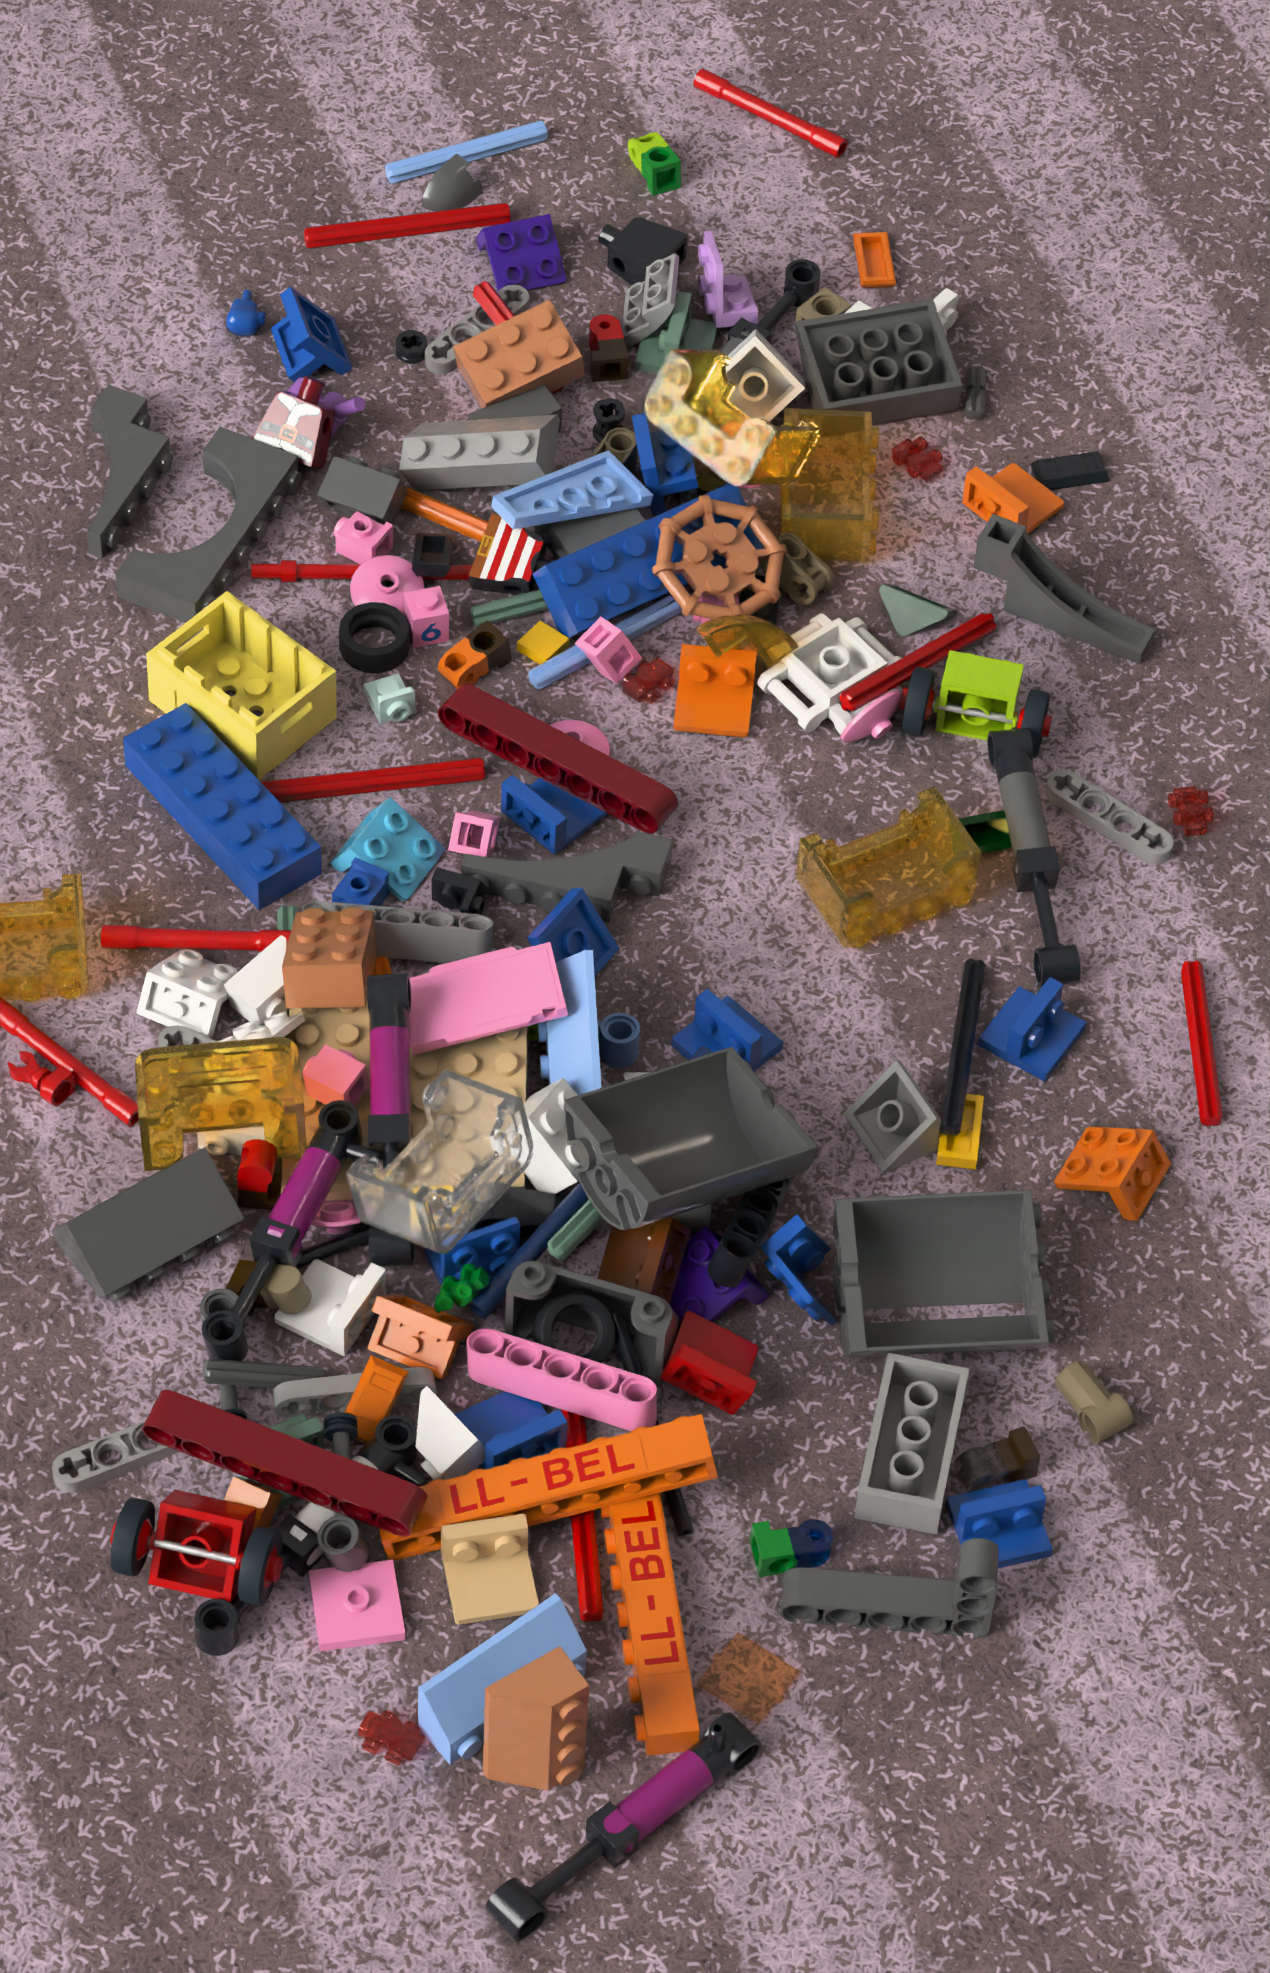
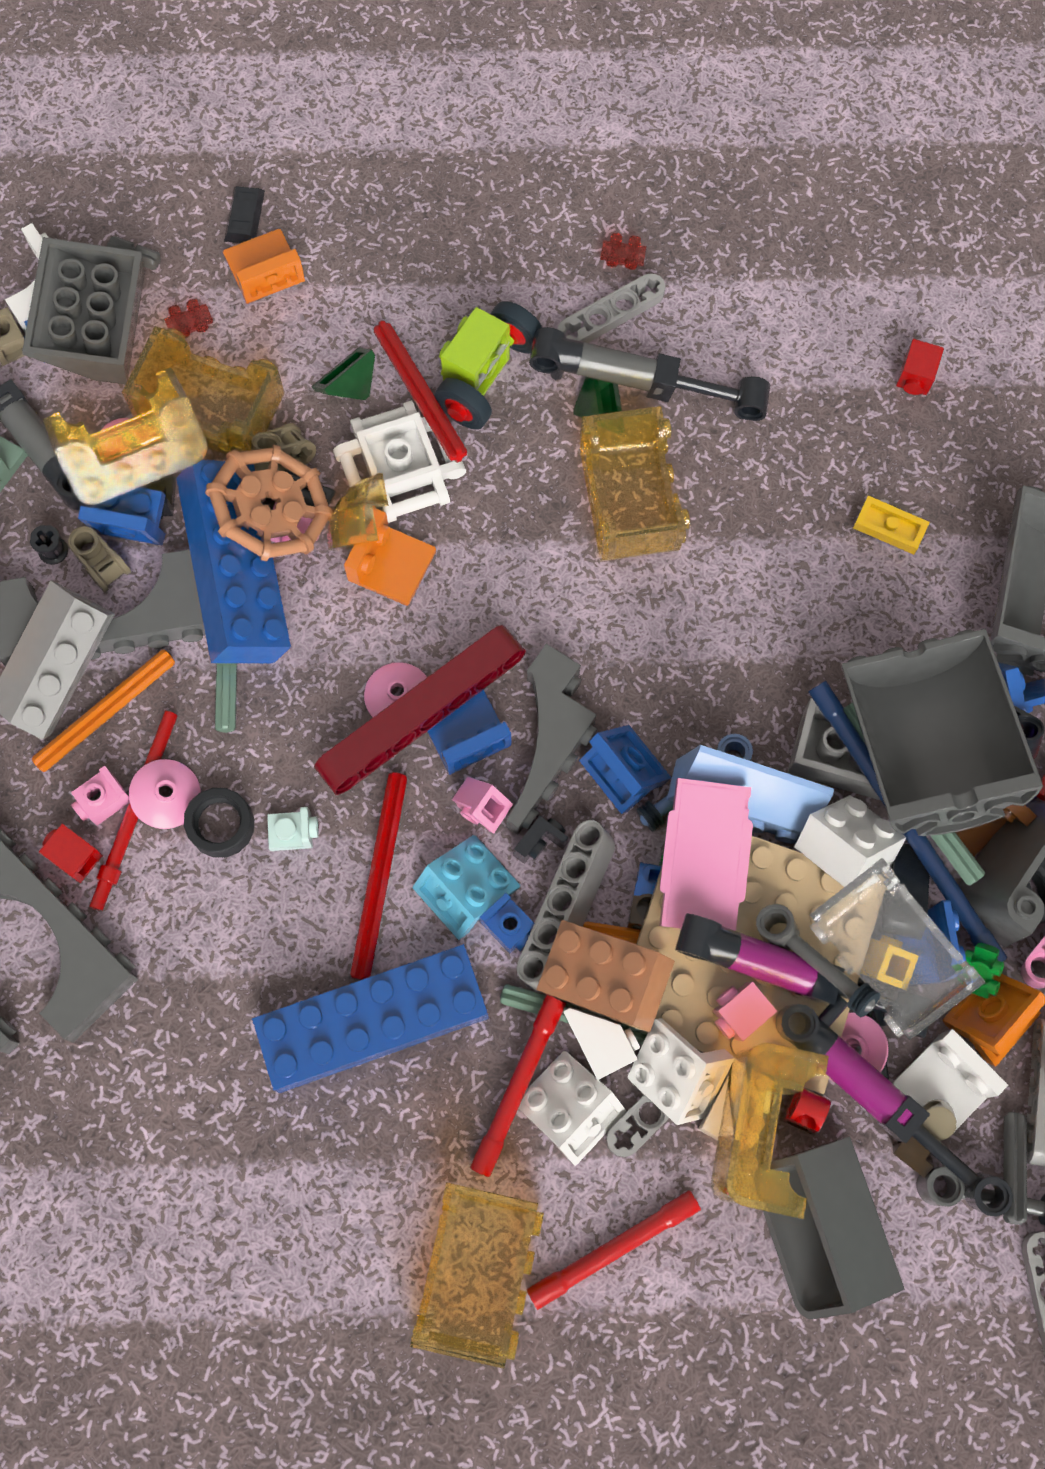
camera: 70 degrees left, 20 degrees up
(53, 1086) = (641, 1269): red piece -> none
(264, 670) = (234, 933): light yellow container -> none
(297, 533) = (70, 852): none -> red brick
(355, 487) = (48, 780): dark grey brick -> none
(375, 1131) = (861, 998): none -> dark grey piece
(427, 616) = (215, 768): bright pink brick -> none
(432, 554) = (143, 741): black tile -> none
(475, 655) = (275, 742): leg -> none
(507, 559) = (179, 677): torso -> none
(542, 643) = (275, 681): yellow tile -> none
(573, 492) = (138, 598): light blue wing -> none
(609, 650) = (315, 628): bright pink brick -> none
(631, 626) = (299, 649): light blue axle -> none
(647, 679) = (345, 602): clear red piece -> none
(725, 1025) = (753, 671): blue bracket -> none
(761, 378) = (68, 394): white slope -> none
(873, 718) = (472, 440): bright pink dish -> none
(895, 1119) = (873, 568): light grey slope -> none
(962, 1047) = (818, 494): black axle -> none
(1033, 1030) = (806, 439): blue bracket -> none
(1049, 597) = (383, 271): dark grey arch -> none
(1117, 1162) = (953, 430): orange bracket -> none
(1173, 1113) = (919, 367): none -> red brick
(1201, 1043) = (844, 324): red axle -> none

